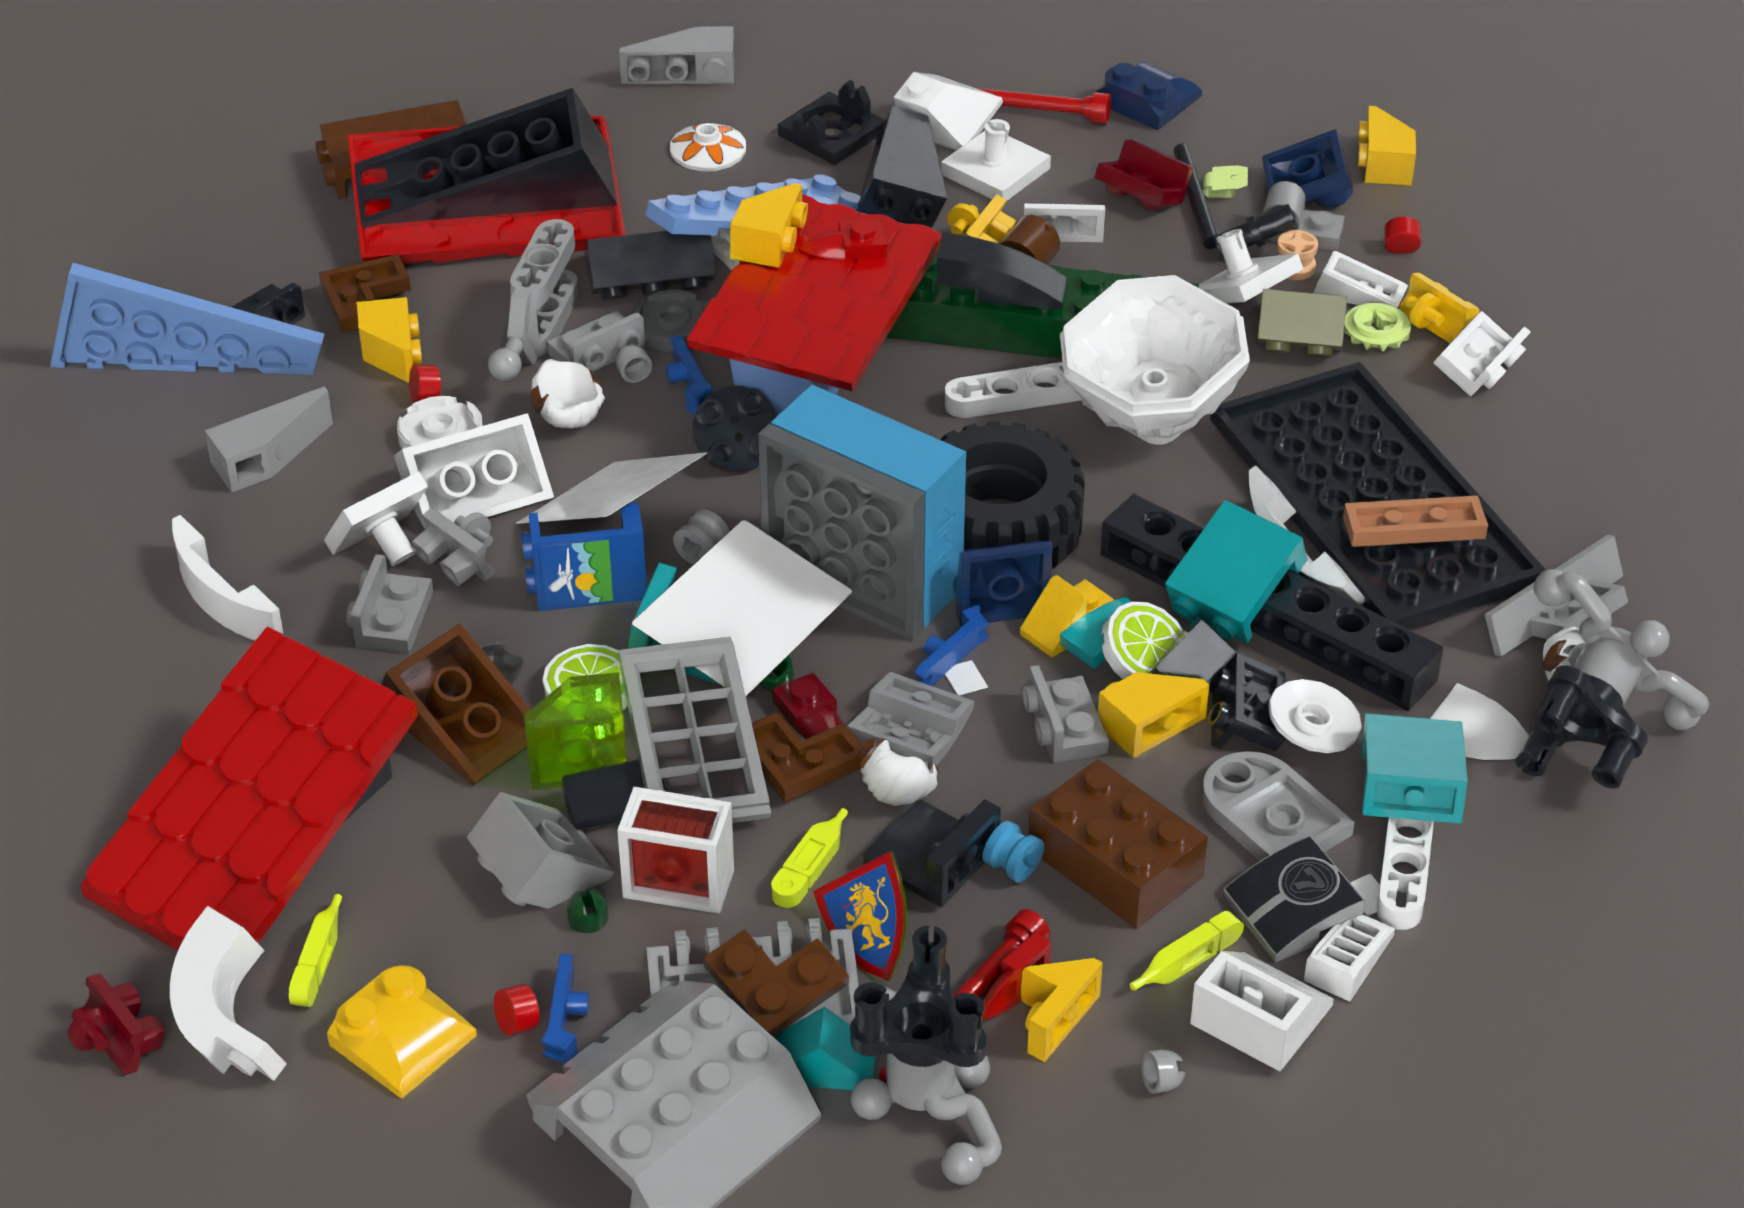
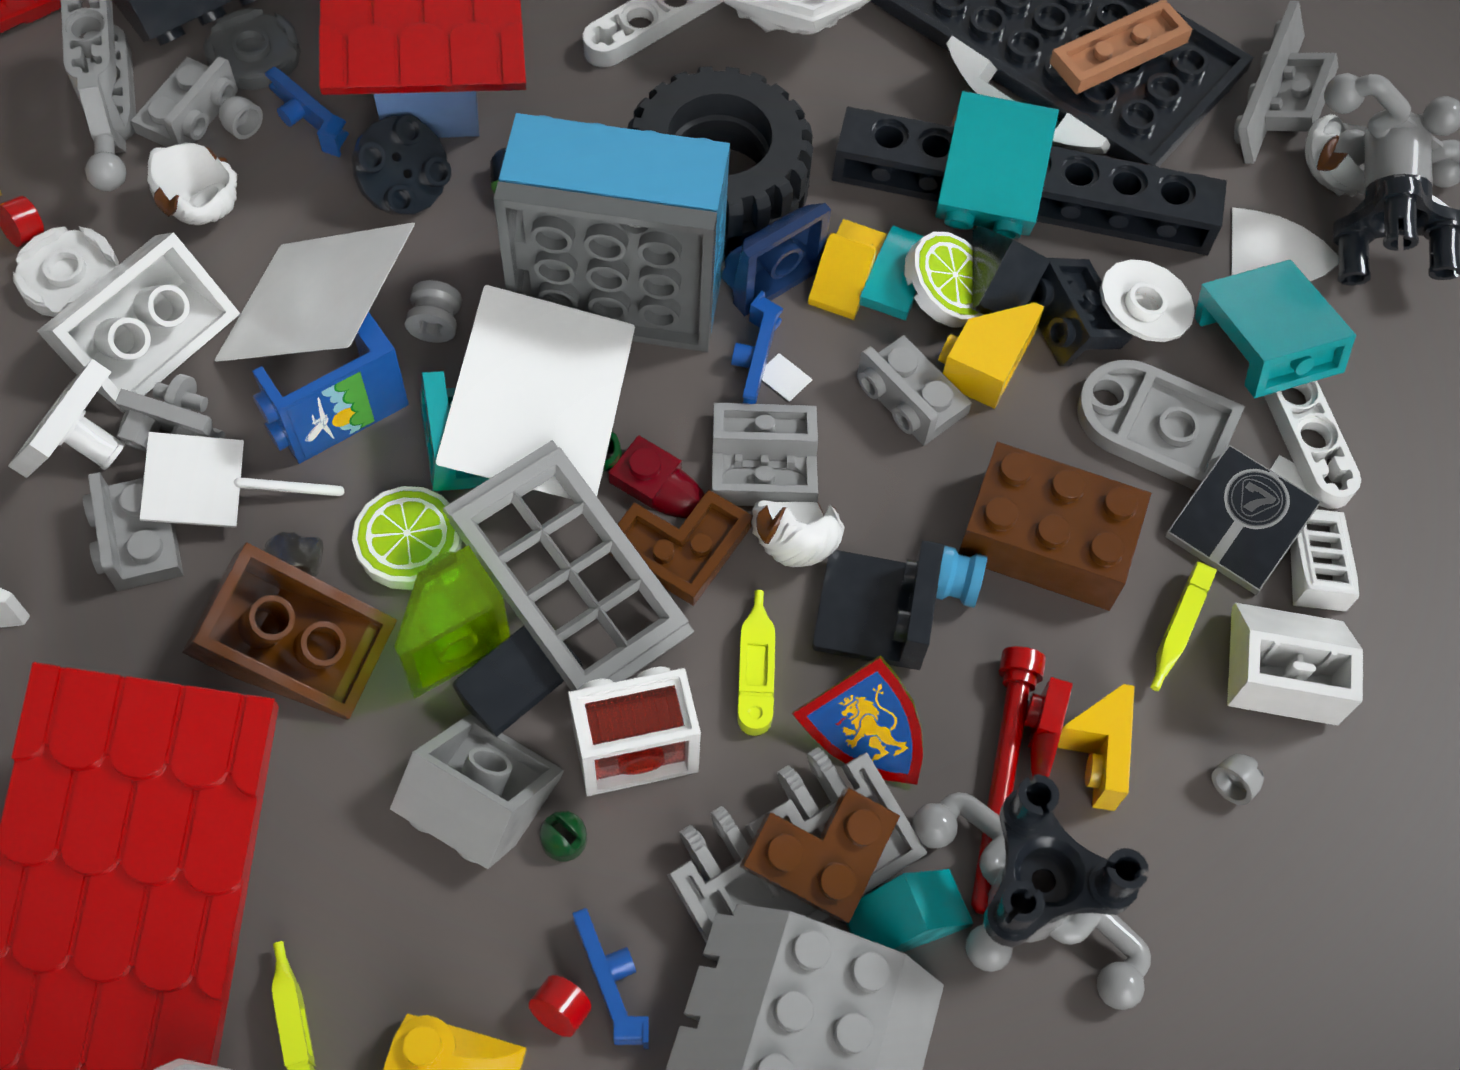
camera: 30 degrees left, 20 degrees up
(457, 588) = (200, 481): none -> white piece

